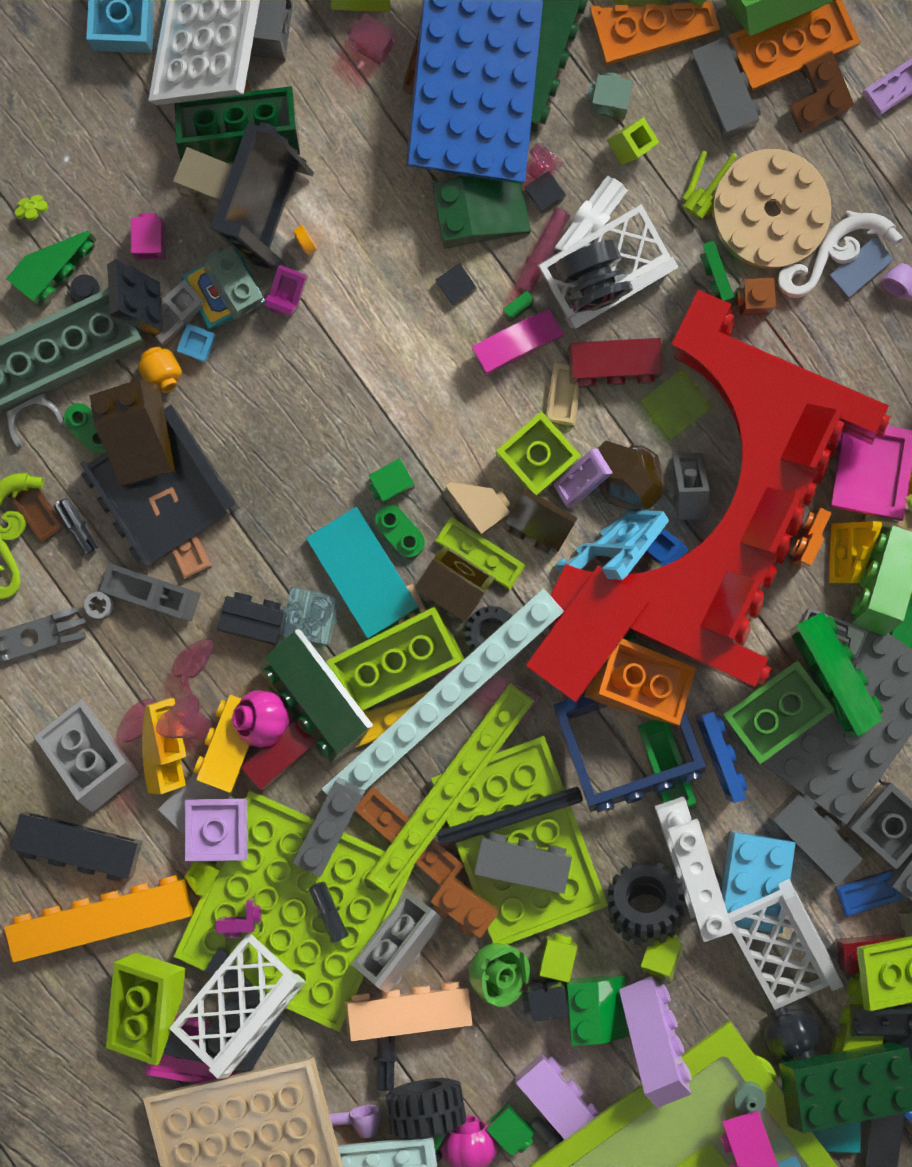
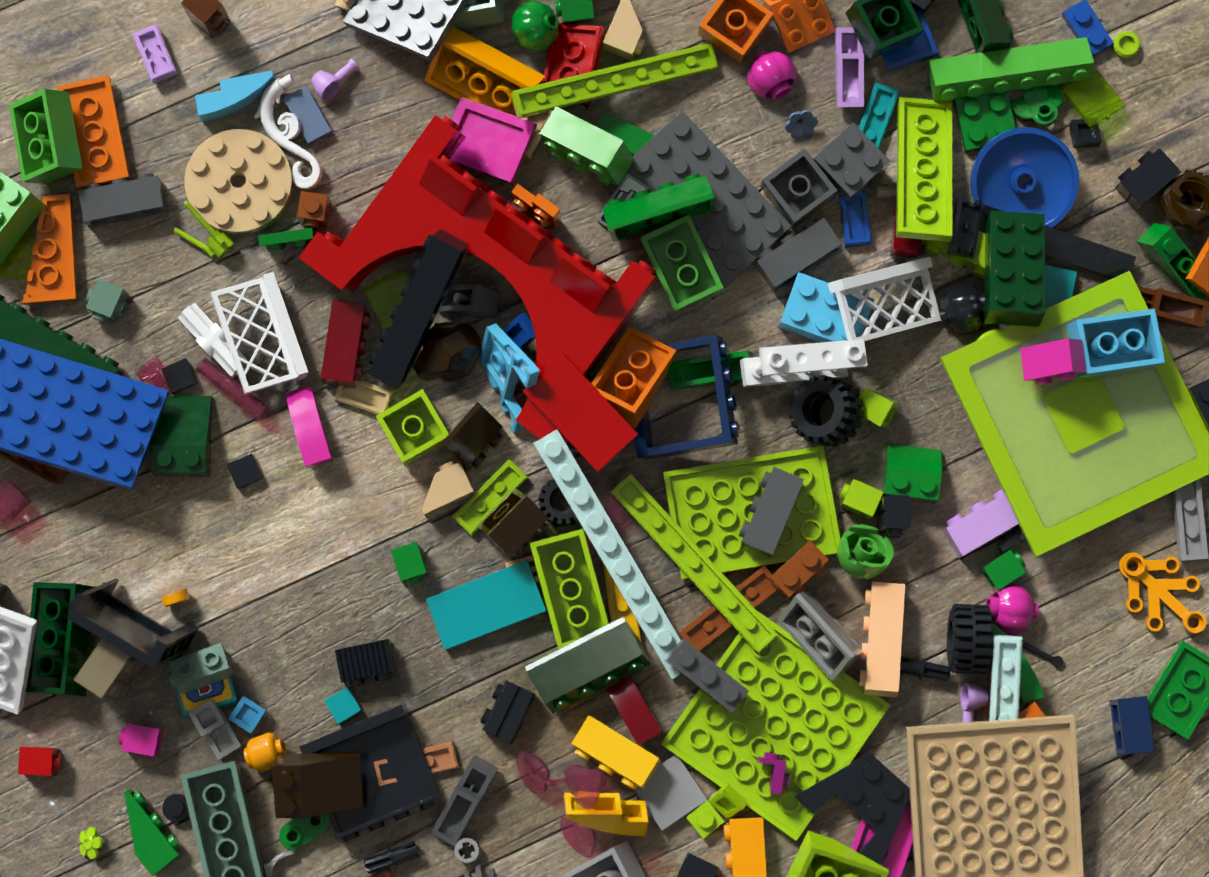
camera: 80 degrees left, 5 degrees down
(105, 134) = (39, 761): none -> red brick
(134, 298) = (196, 759): black plate -> none
(174, 853) = (705, 819): none -> lime plate
(216, 830) = (689, 779): lavender plate -> none
(226, 442) = (343, 705): none -> teal tile
(251, 1028) = (871, 779): white fence -> none
(265, 718) = (600, 713): dark pink plant -> none
(275, 456) = (365, 662): none -> black brick
(286, 291) = (218, 624): magenta bracket -> none
(311, 613) = (512, 656): clear light blue piece -> none
(328, 912) = (782, 692): black axle -> none
(399, 531) = (455, 564): green plate -> none
(509, 816) = (728, 515): black axle -> none
(518, 306) = (277, 419): green tile -> none
(582, 478) = (442, 393): lavender plate -> none
(594, 276) = (267, 344): black wheel -> none
(632, 141) = (152, 289): lime brick -> none
(655, 1042) = (946, 425): lavender brick -> none
(669, 432) = (418, 308): none -> black brick
(721, 756) = (710, 320): blue plate -> none
(749, 1098) = (1008, 354): sand green tile -> none
(828, 97) = (150, 112): reddish brown plate -> none
(851, 549) = (553, 173): yellow wing -> none
(865, 182) = (234, 95): none -> medium azure slope

